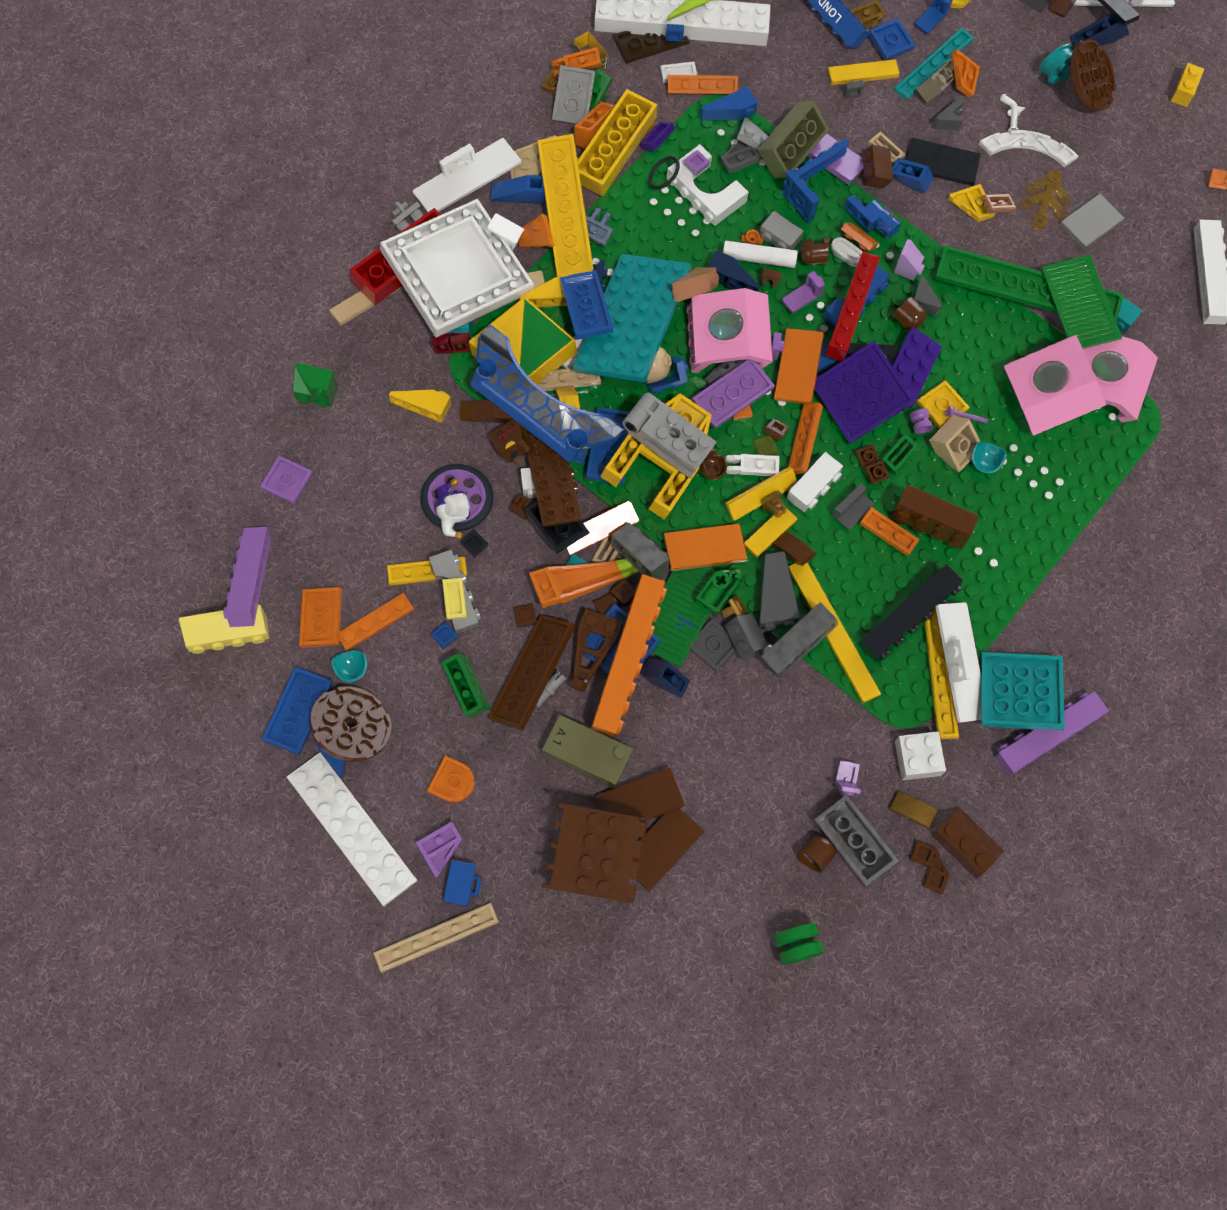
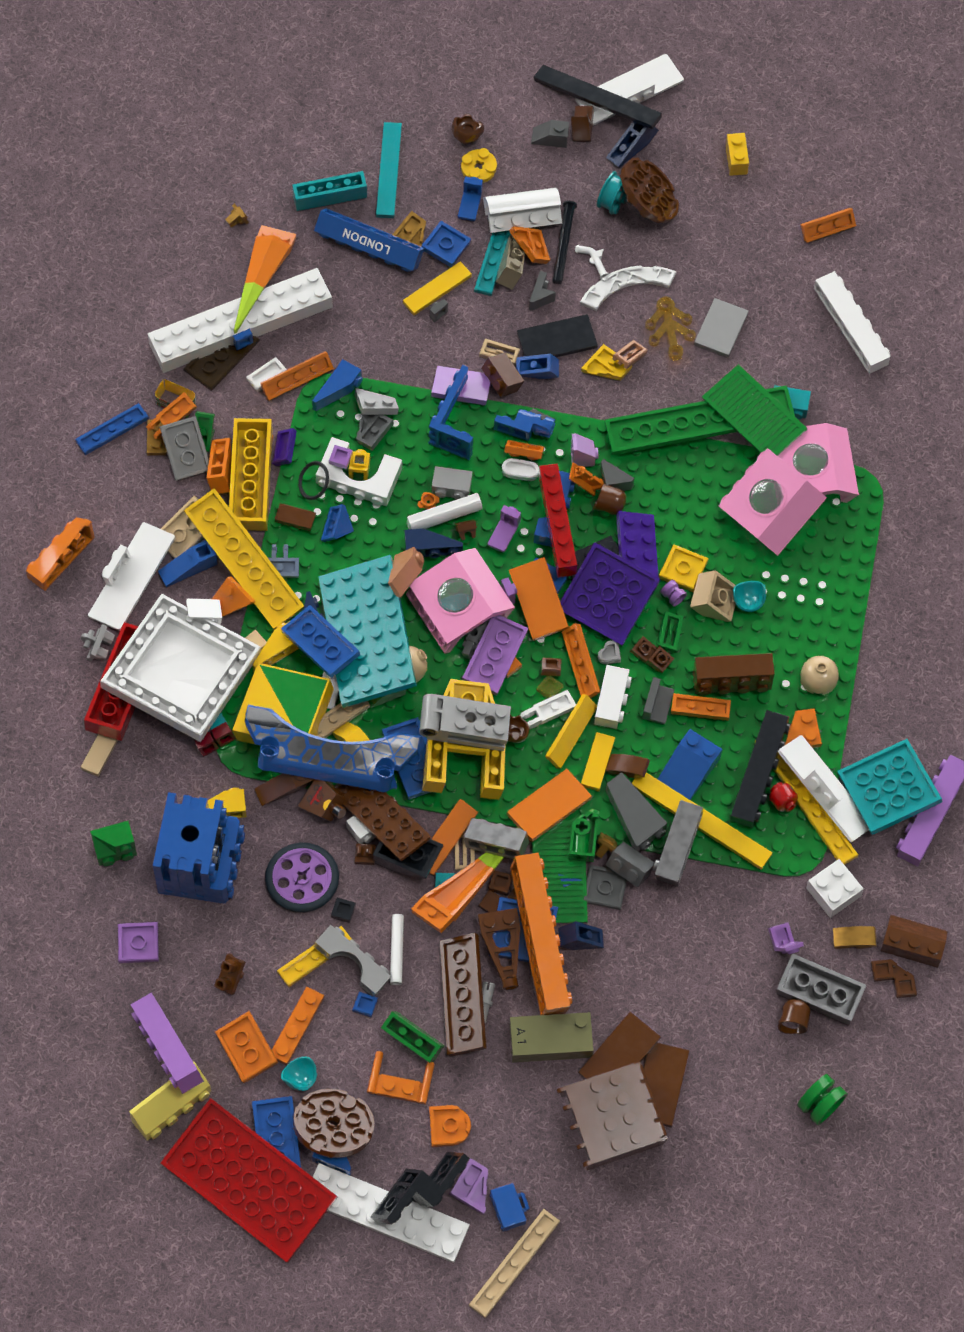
camera: 25 degrees left, 5 degrees down
(250, 735) = (249, 1180): none -> red plate
(345, 545) = (230, 974): none -> reddish brown hips
(375, 424) = (197, 850): none -> blue piece
(392, 829) = (420, 1188): none -> black bracket
(420, 129) = (60, 553): none -> orange wedge
(429, 723) = (399, 1087): none -> orange plate
(452, 508) = (306, 889): white piece -> none
(454, 598) = (359, 966): light yellow tile -> none
(499, 603) = (396, 949): none -> white piece
(524, 53) = (112, 429): none -> blue tile
(525, 616) = (426, 949): reddish brown plate -> none
(631, 196) = (295, 517): none -> reddish brown tile
(663, 219) = (337, 523): none -> blue slope
(679, 377) = (436, 668): blue bracket -> none
(712, 177) = (359, 463): none -> yellow window
(774, 505) = (588, 735): pearl gold brick -> none
(793, 139) = (414, 389): olive brick -> none
(815, 253) = (495, 487): reddish brown helmet -> none
(835, 444) = (610, 653): none -> light grey tile
(851, 577) = (690, 764): none -> blue slope
(897, 285) = (585, 479): none -> orange hinge
(919, 649) = (783, 797): none -> red head
(950, 411) = (694, 570): medium lavender piece -> none
(974, 41) = (523, 209): none -> white brick
(975, 596) = (805, 724): none -> orange wing
(1013, 559) = (819, 675): none -> tan cylinder
(1016, 59) = (564, 241): none -> black axle

